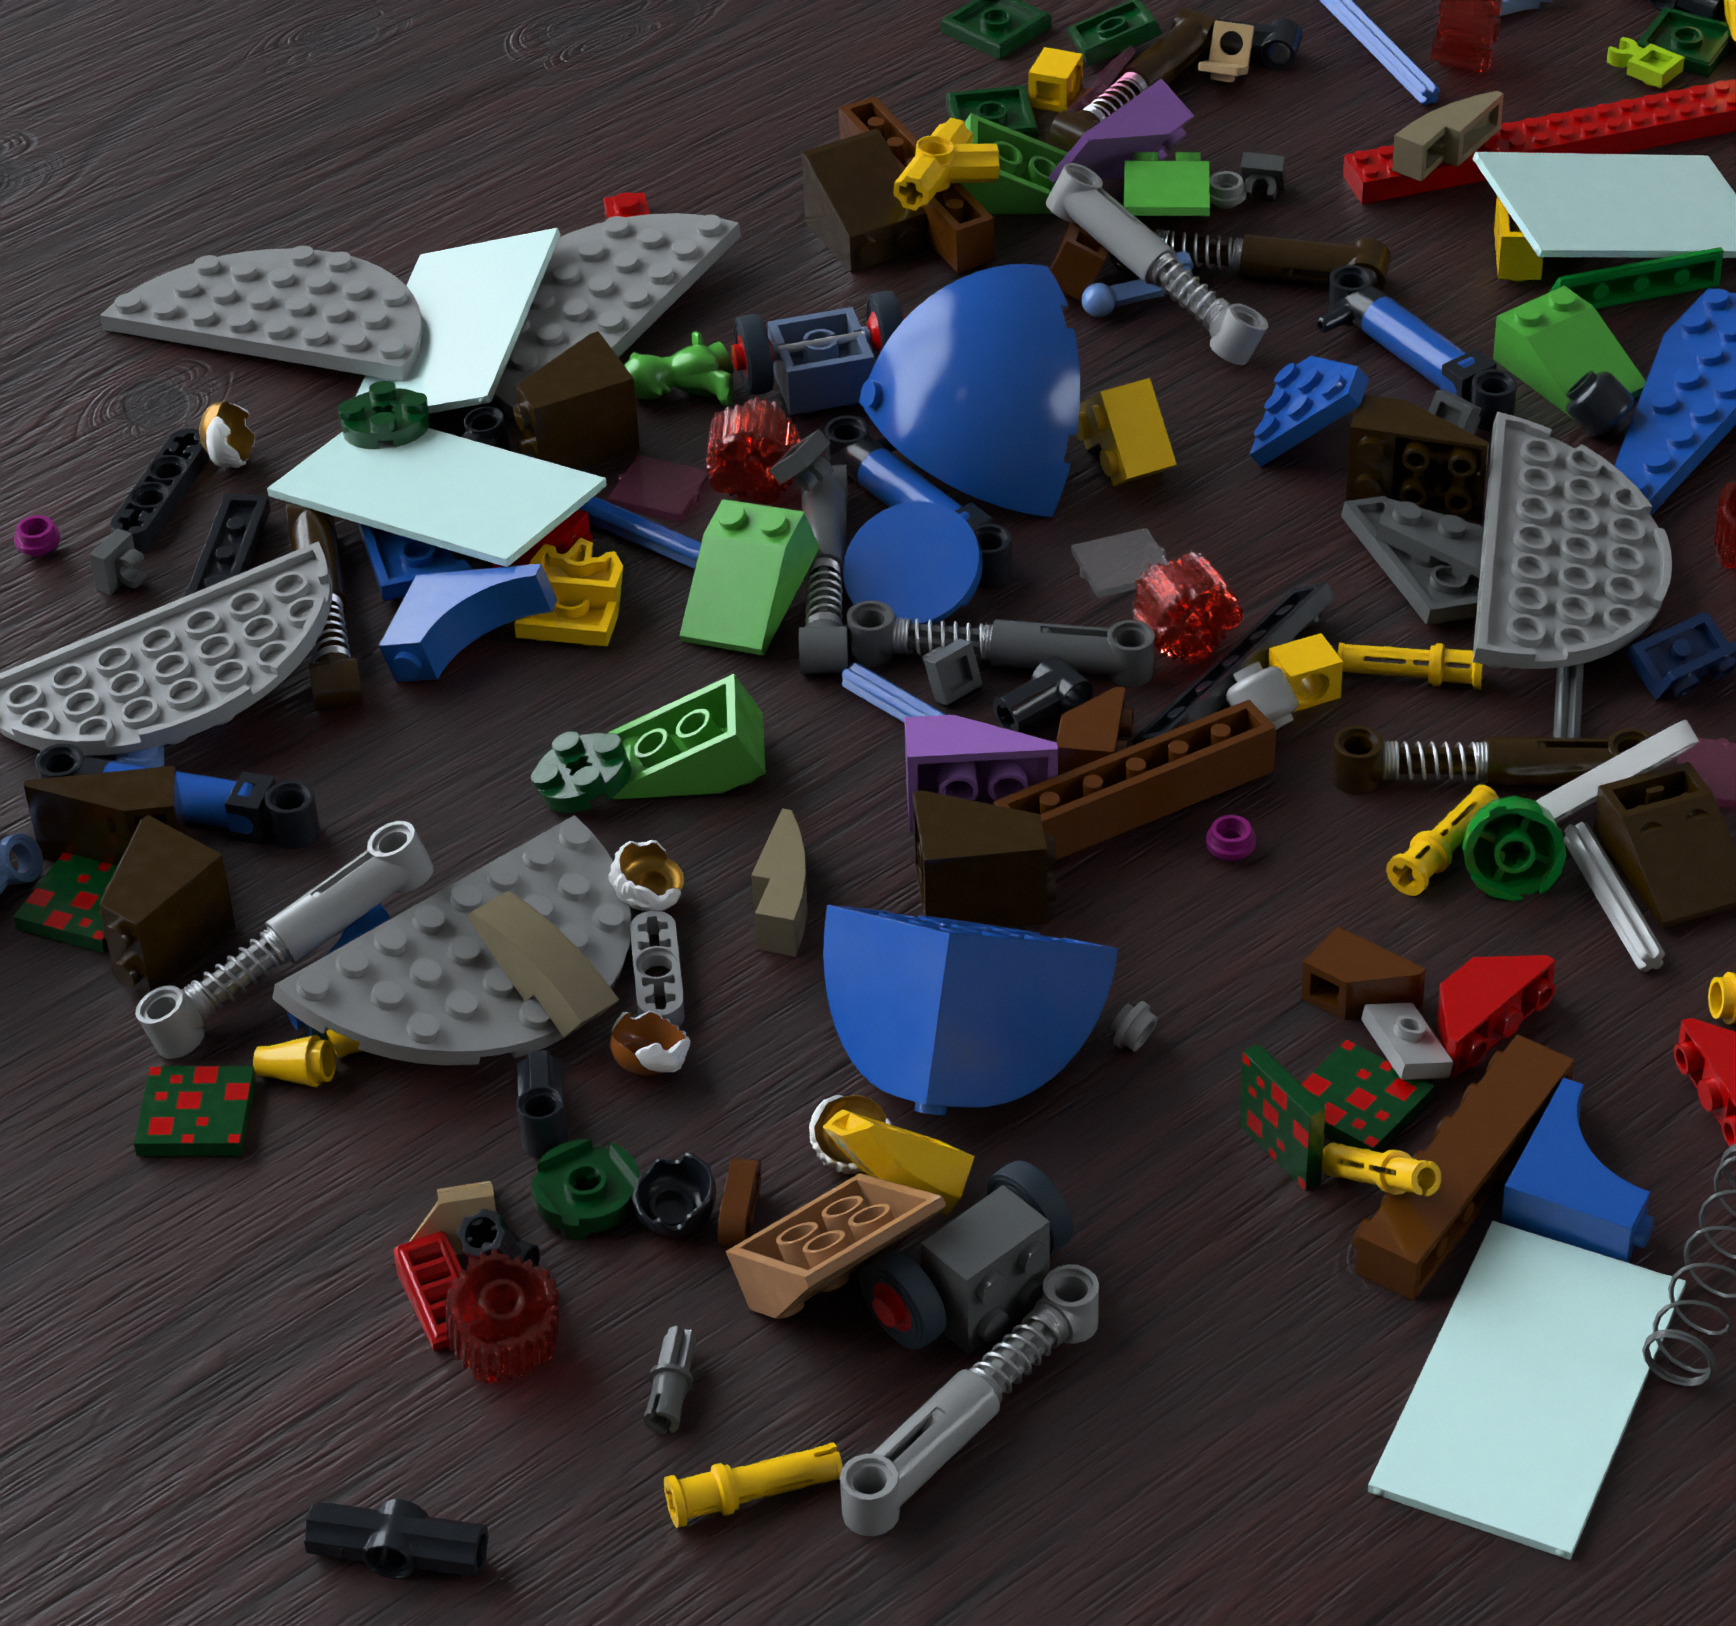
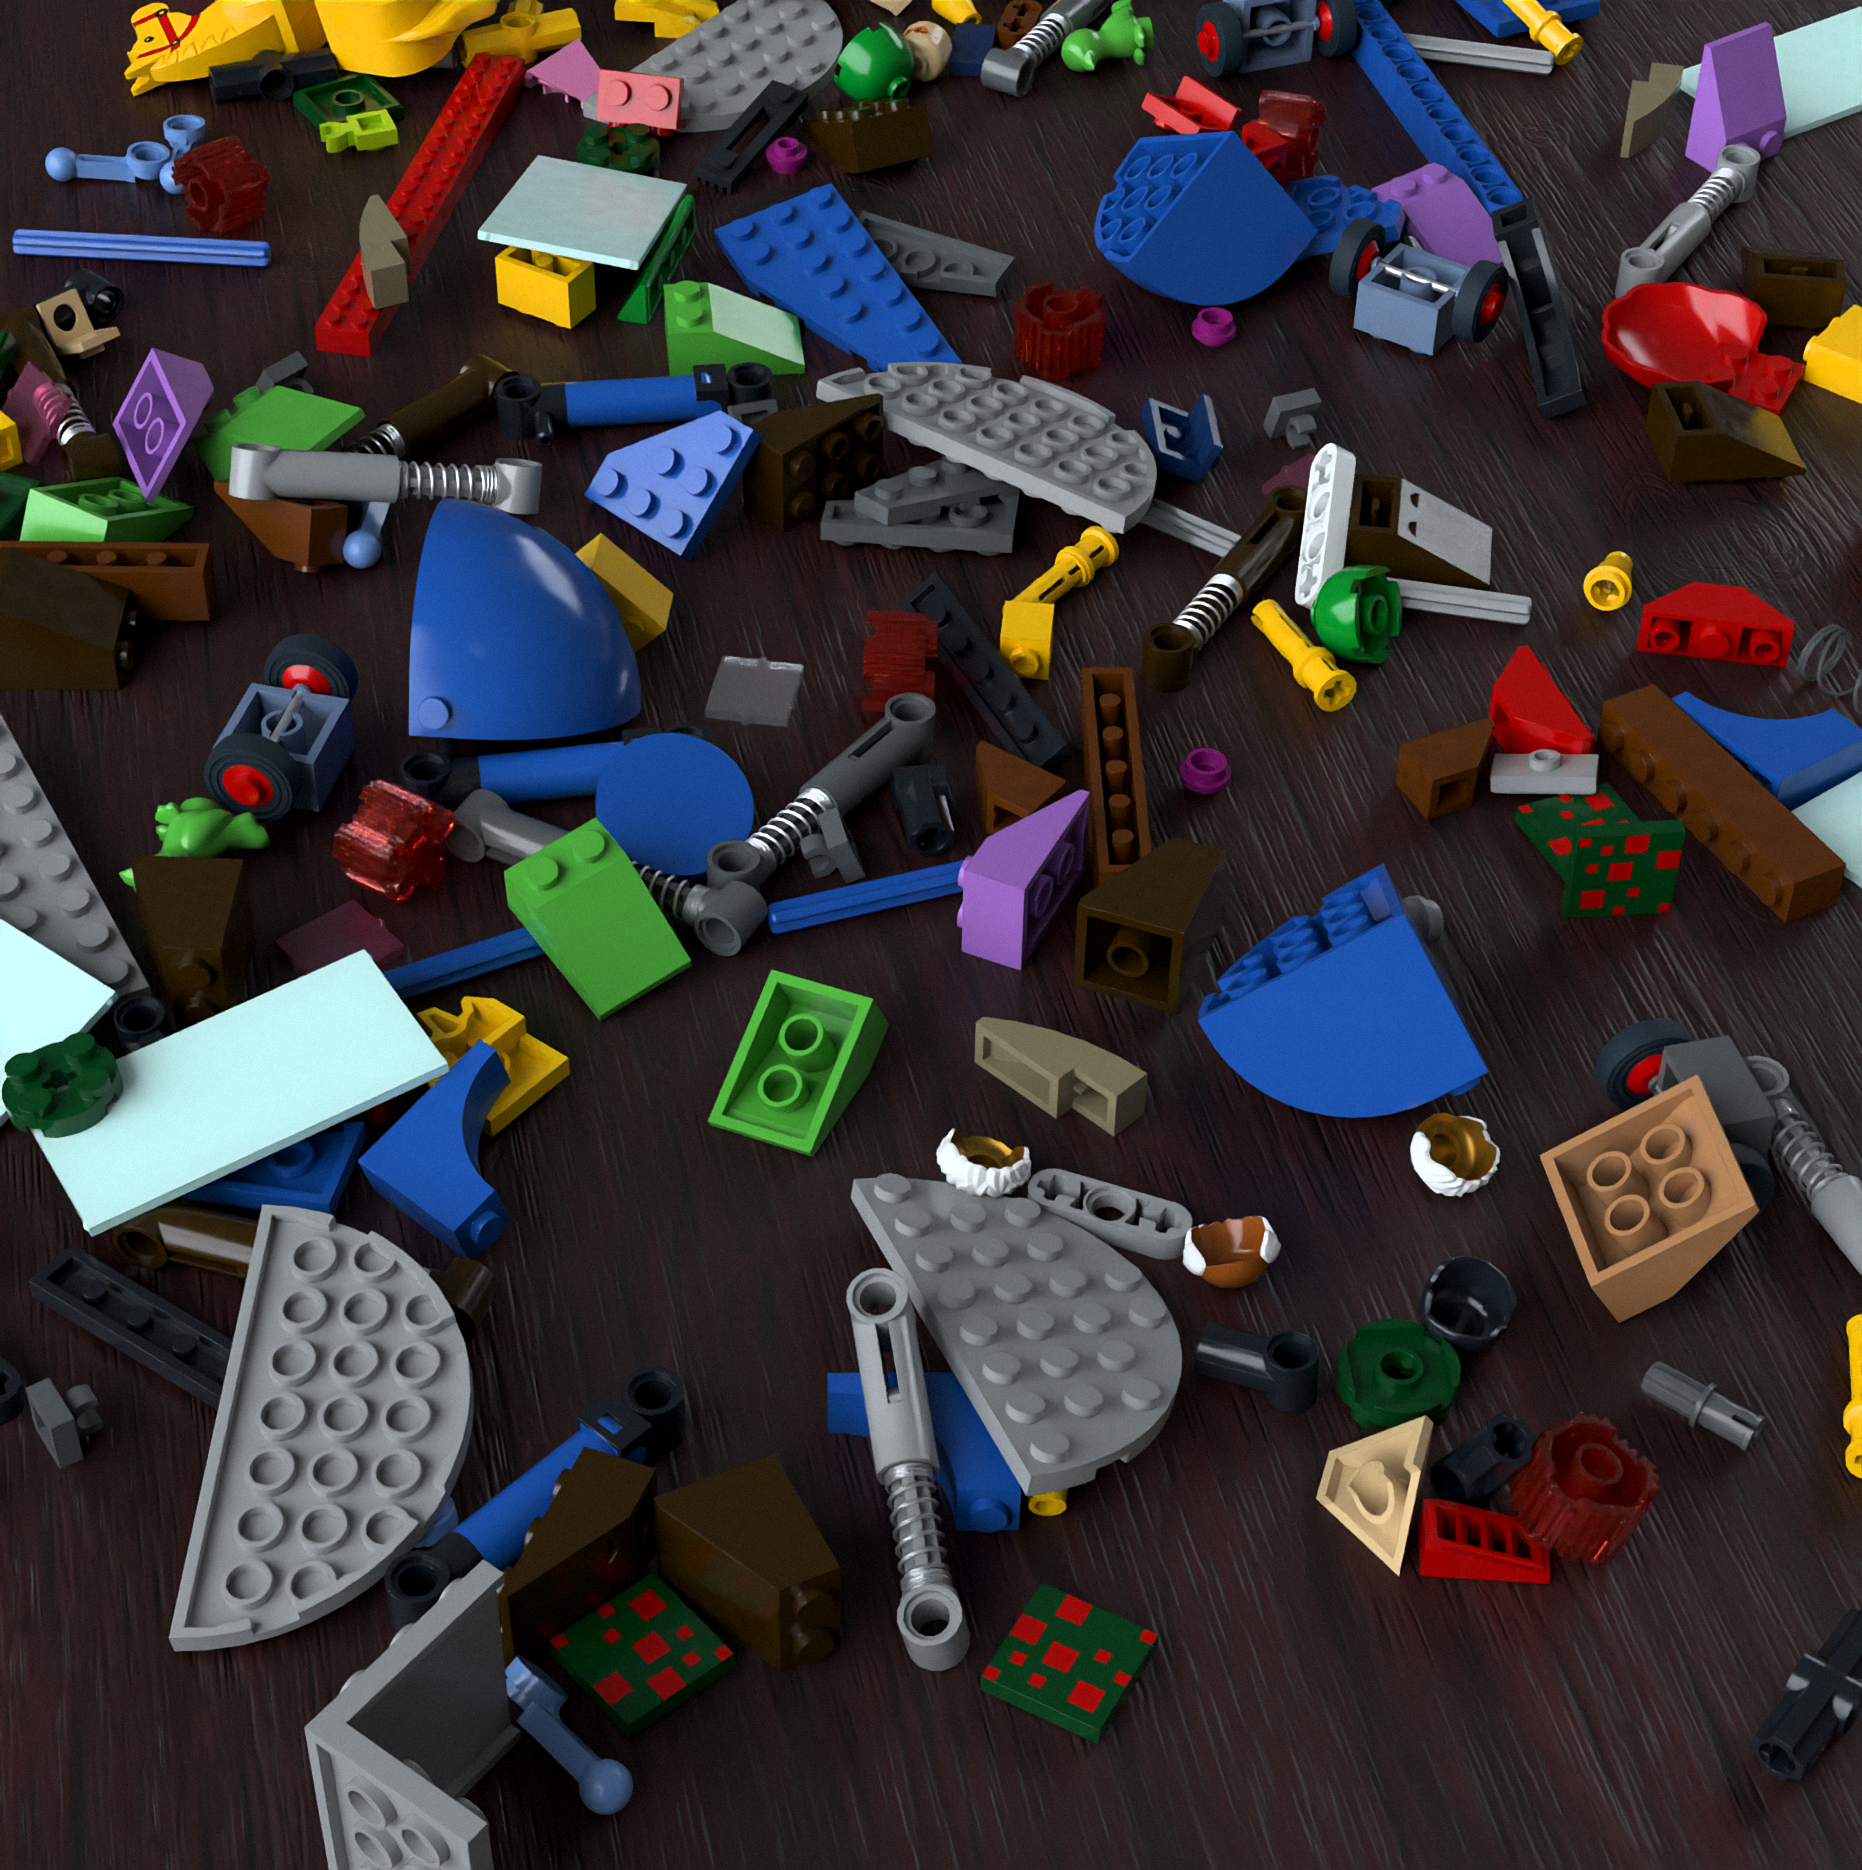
camera: 65 degrees left, 0 degrees up
(297, 1061) = (1062, 1539): yellow cone -> none
(542, 962) = (1111, 1264): dark tan slope -> none
(581, 770) = (767, 1127): dark green plate -> none
(739, 1202) = (1525, 1272): reddish brown beam -> none
(805, 462) = (479, 799): dark grey tile -> none
(902, 1156) = (1548, 1111): yellow slope -> none
(944, 160) = (110, 530): yellow piece -> none
(1267, 691) = (1051, 672): light grey head -> none
(1393, 1160) = (1744, 827): yellow pin -> none
(1600, 404) = (819, 341): black head -> none

